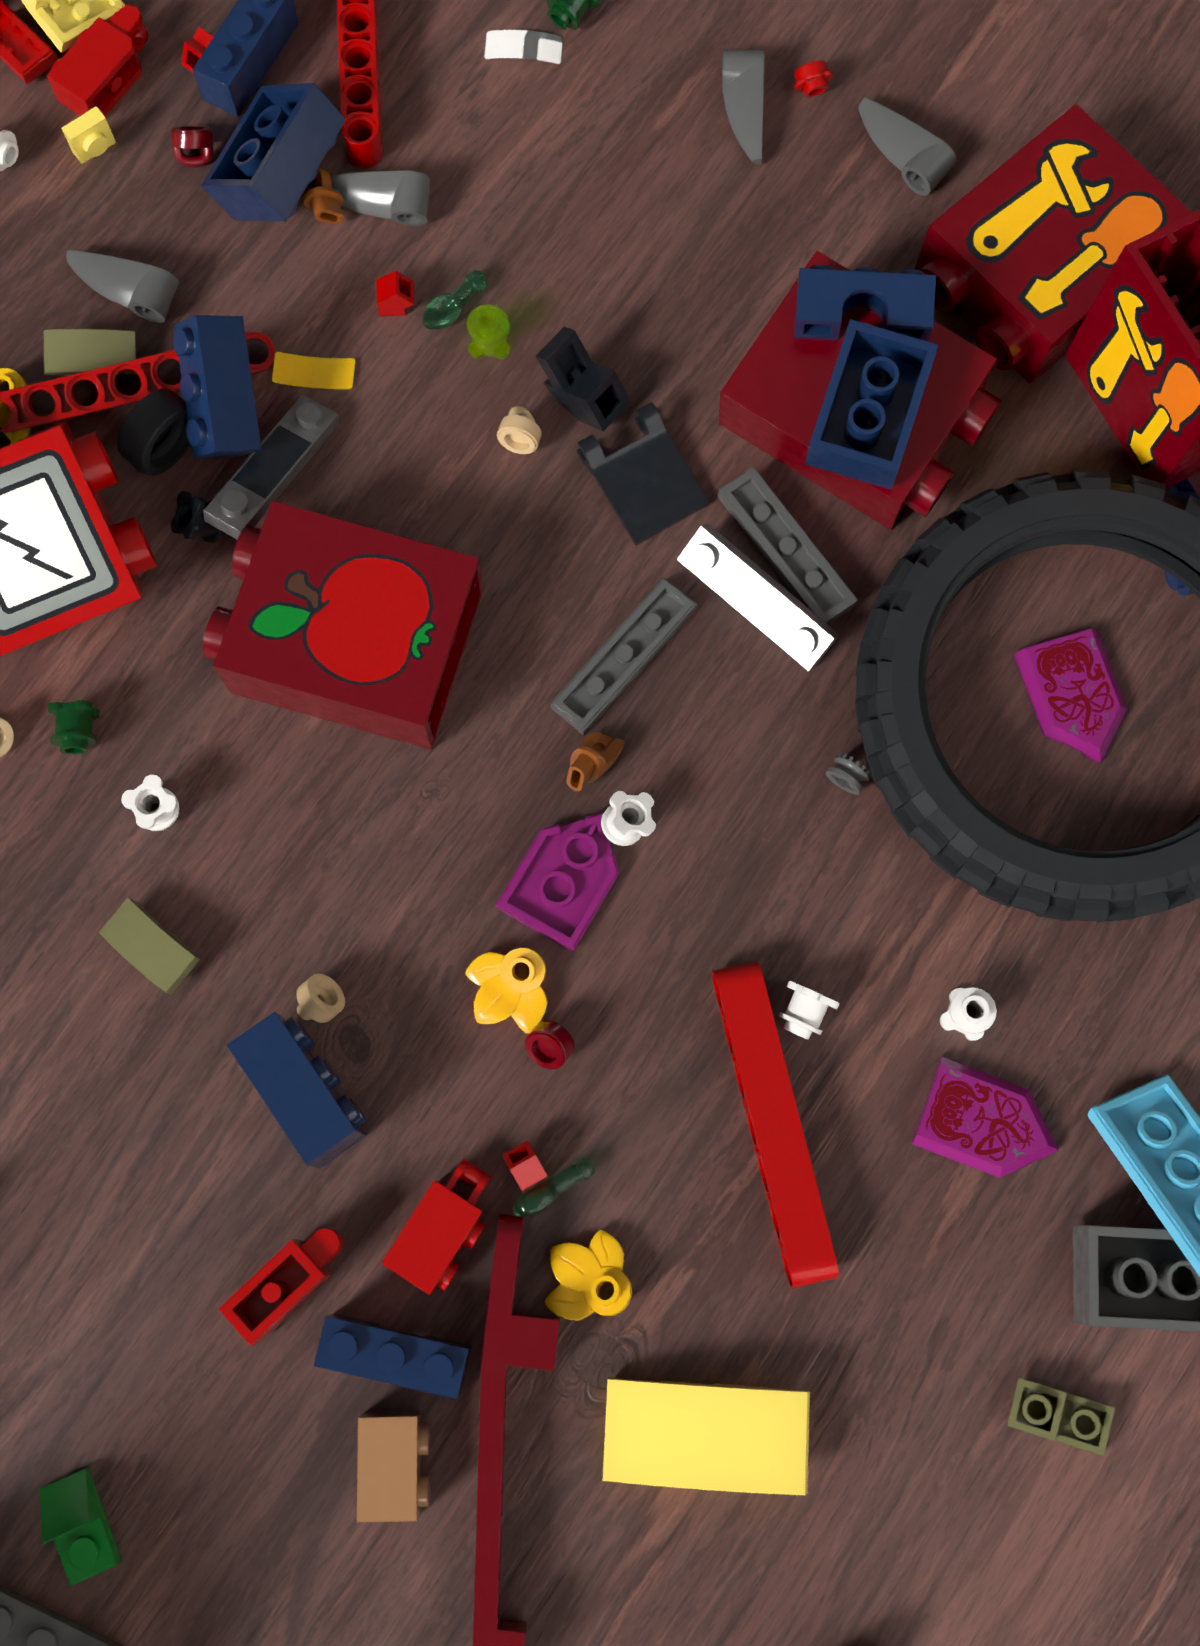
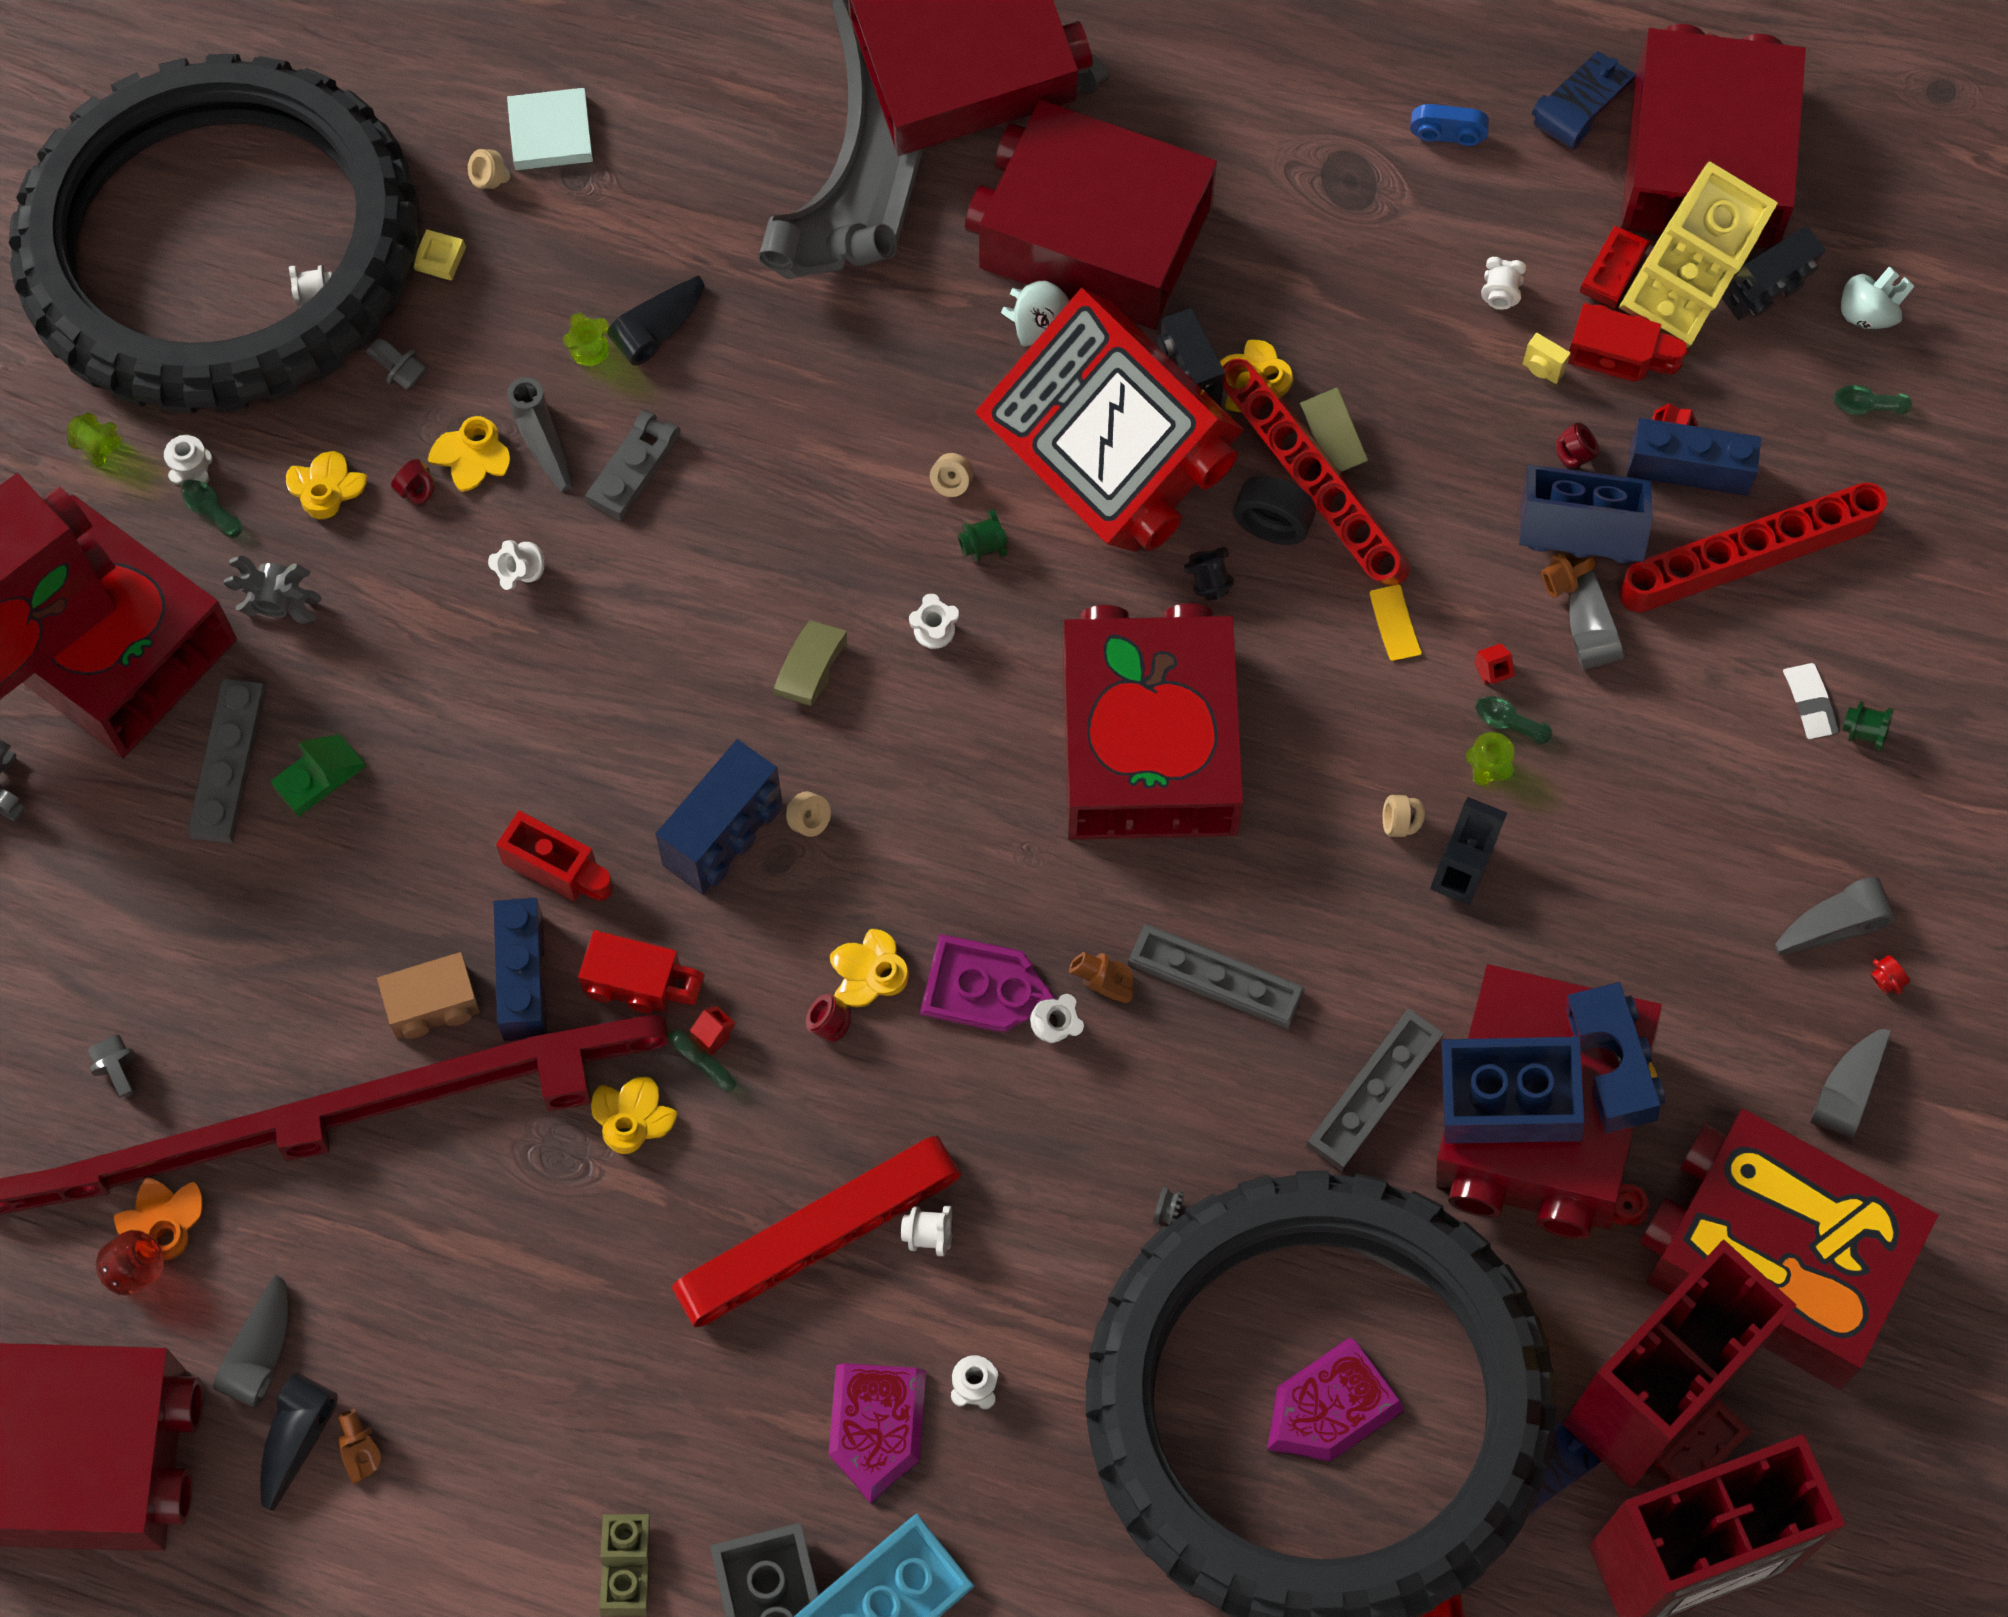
camera: 75 degrees right, 10 degrees down
(133, 284) = (1413, 439): dark grey piece -> none
(217, 386) = (1326, 538): dark blue brick -> none
(273, 468) = (1282, 615): flat silver plate -> none
(646, 479) = (1398, 944): black flag -> none
(707, 1436) = (523, 1250): light yellow slope -> none
(758, 597) = (1314, 1076): plate -> none

